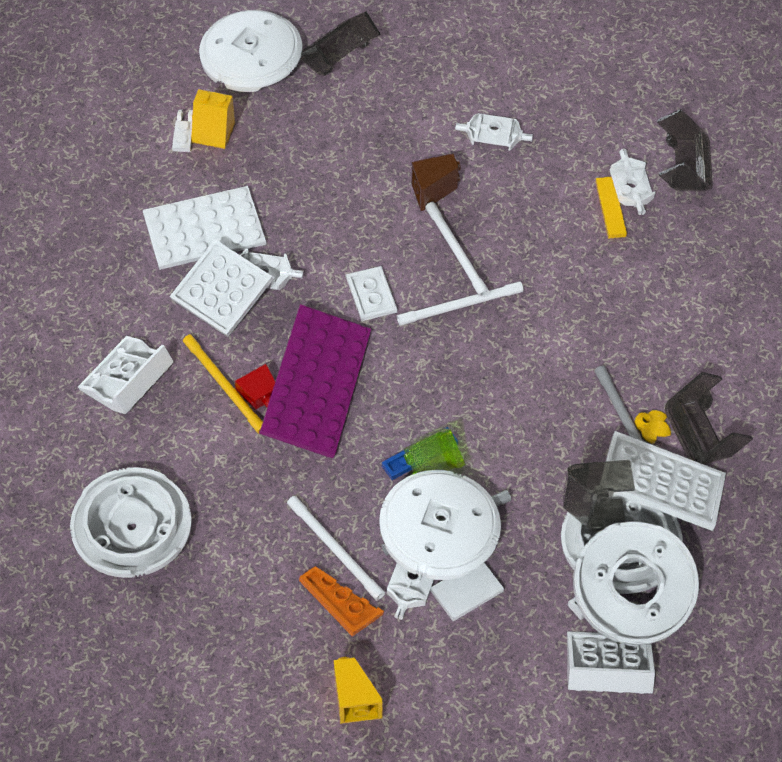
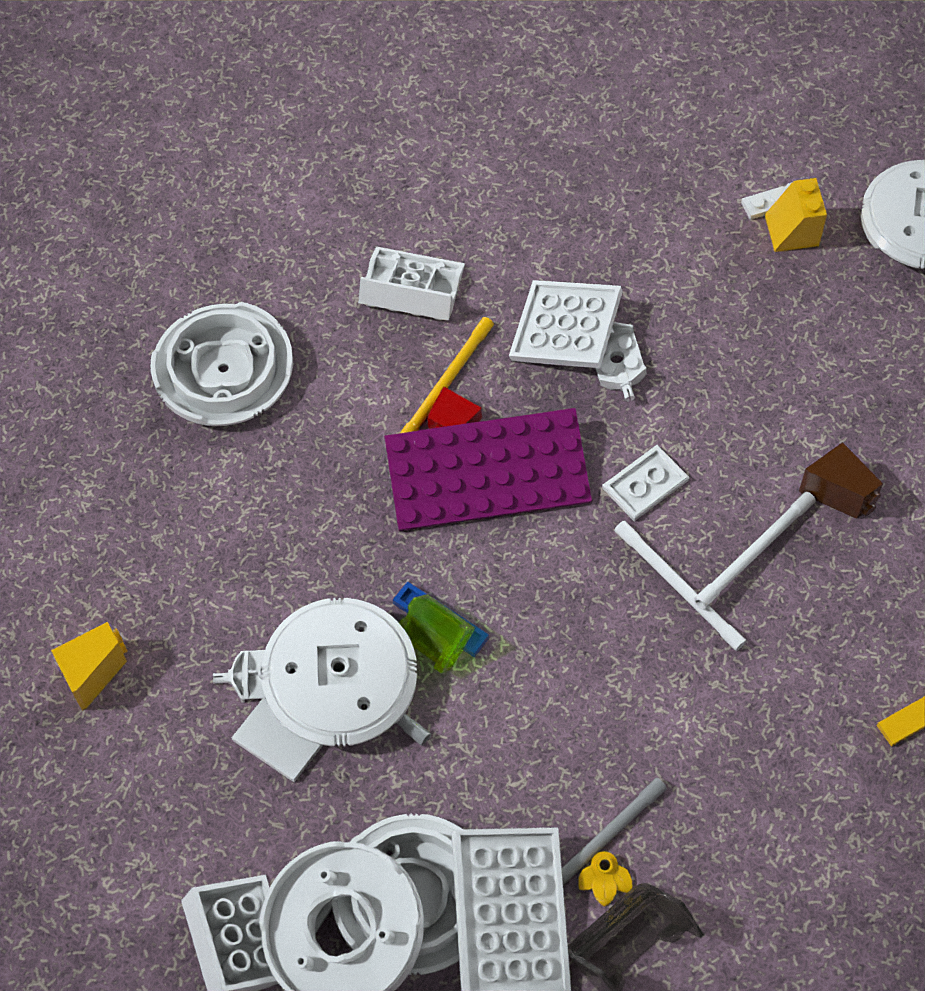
camera: 70 degrees right, 5 degrees up
(188, 227) = (658, 279): white plate -> none
(347, 608) = (207, 613): orange wing -> none
(369, 584) = (244, 631): white piece -> none
(590, 492) = (421, 831): clear smoke windscreen -> none

